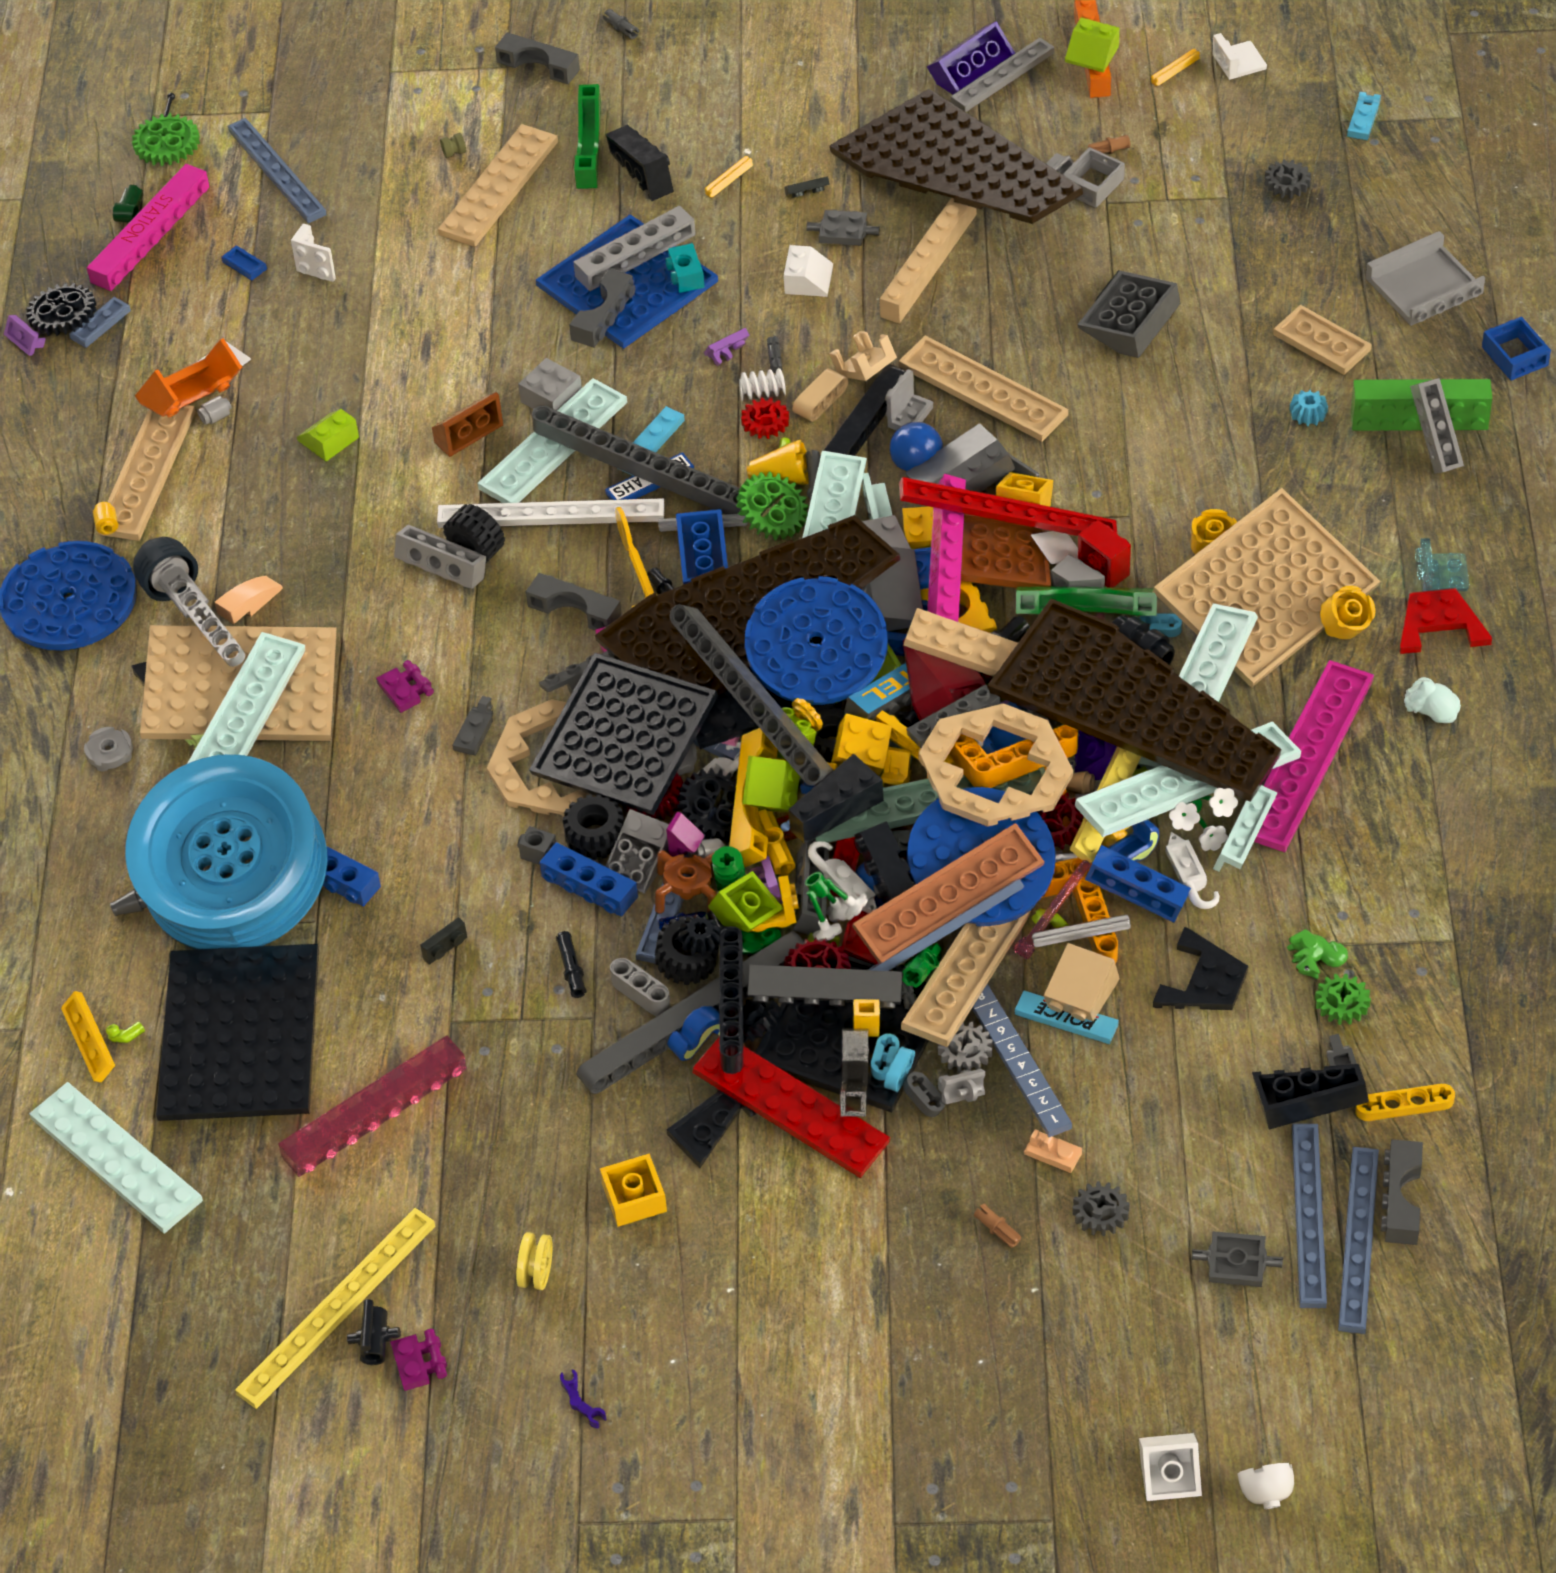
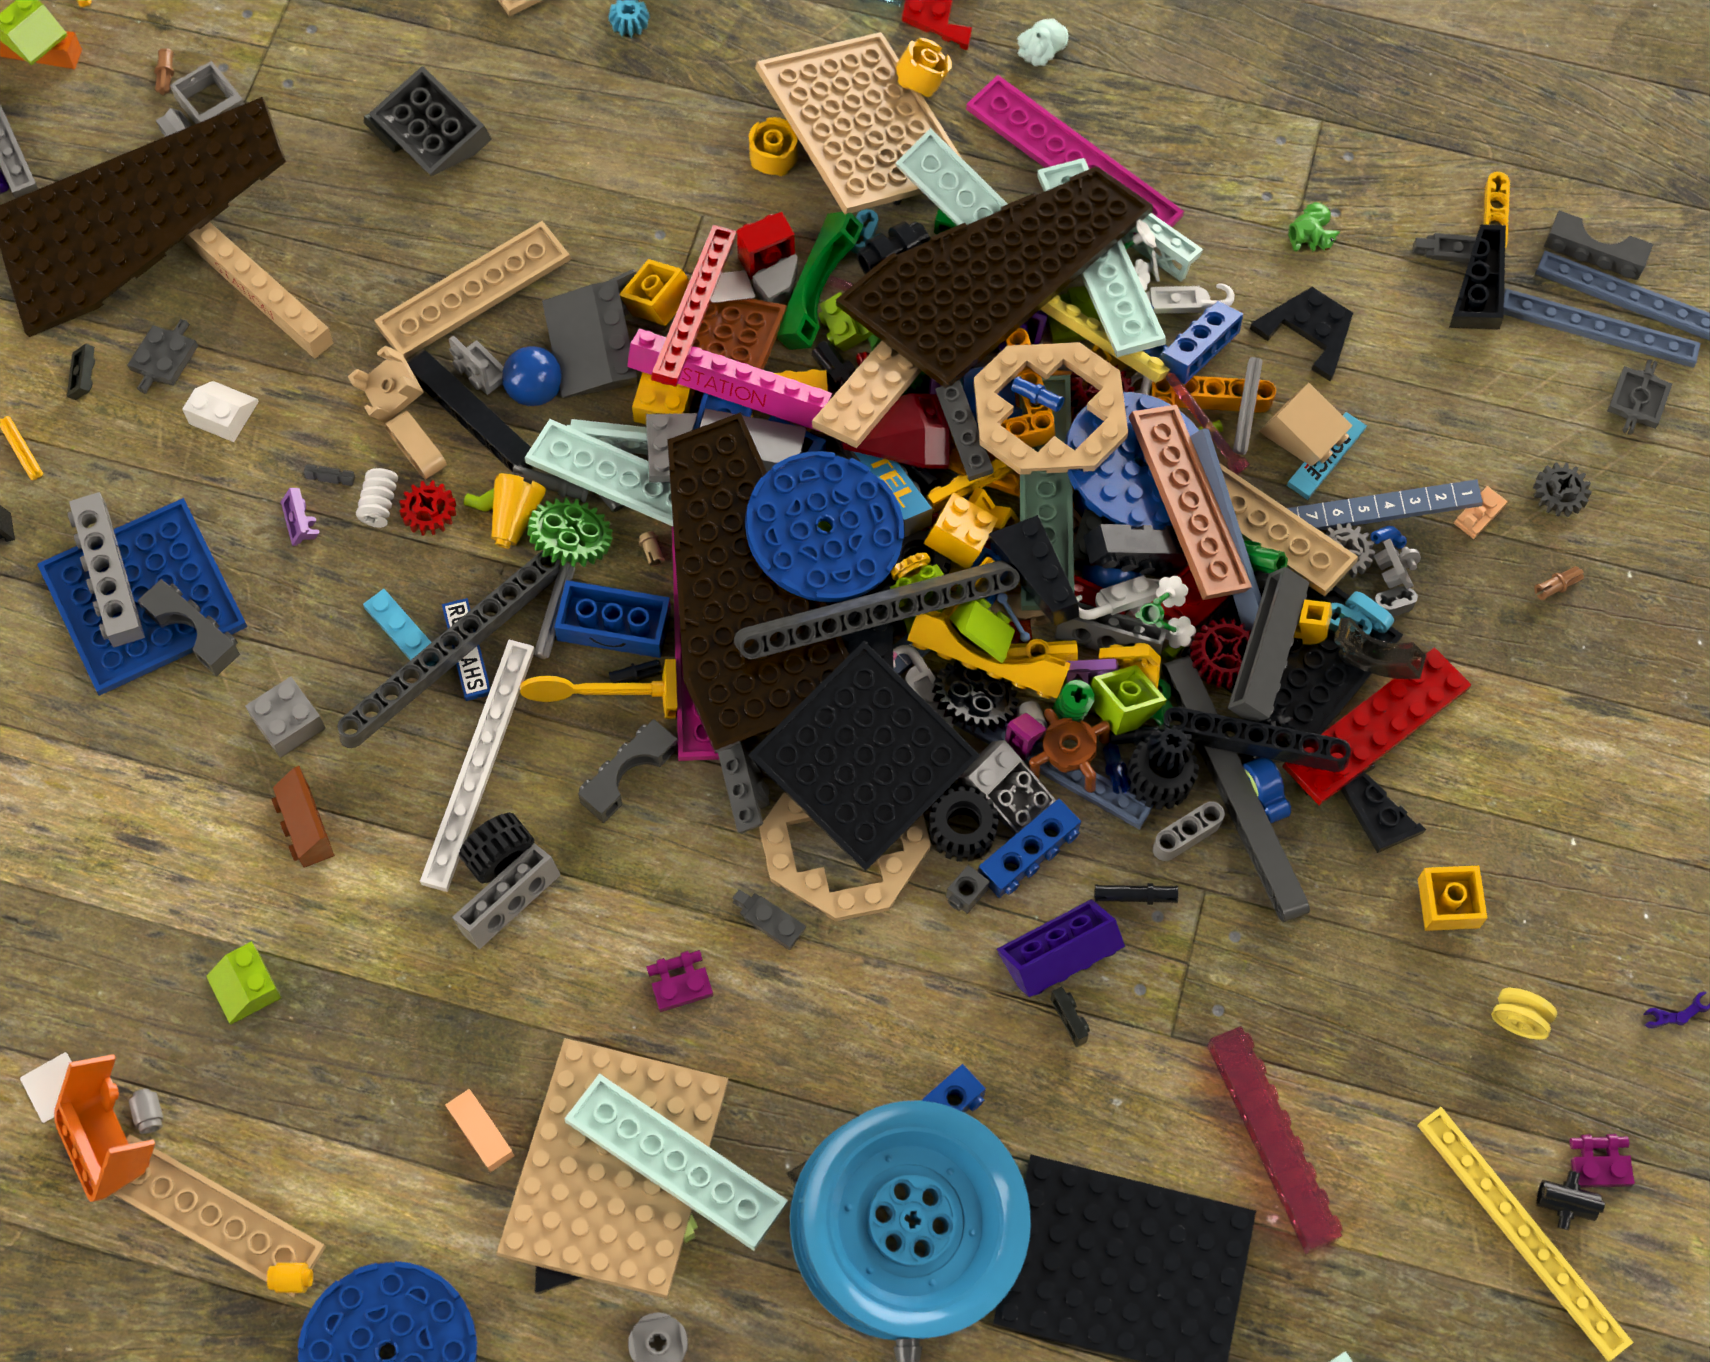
camera: 80 degrees left, 15 degrees up
(168, 573) = (405, 1217): light grey piece -> none
(503, 921) = (1061, 947): none -> dark purple slope
(541, 456) = (385, 756): light aqua plate -> none
(685, 268) = (154, 515): teal brick -> none
(995, 1078) = (1389, 532): none -> blue arm
(1004, 751) = (1037, 394): none -> blue pin
(1355, 1002) = (1373, 223): bright green gear -> none

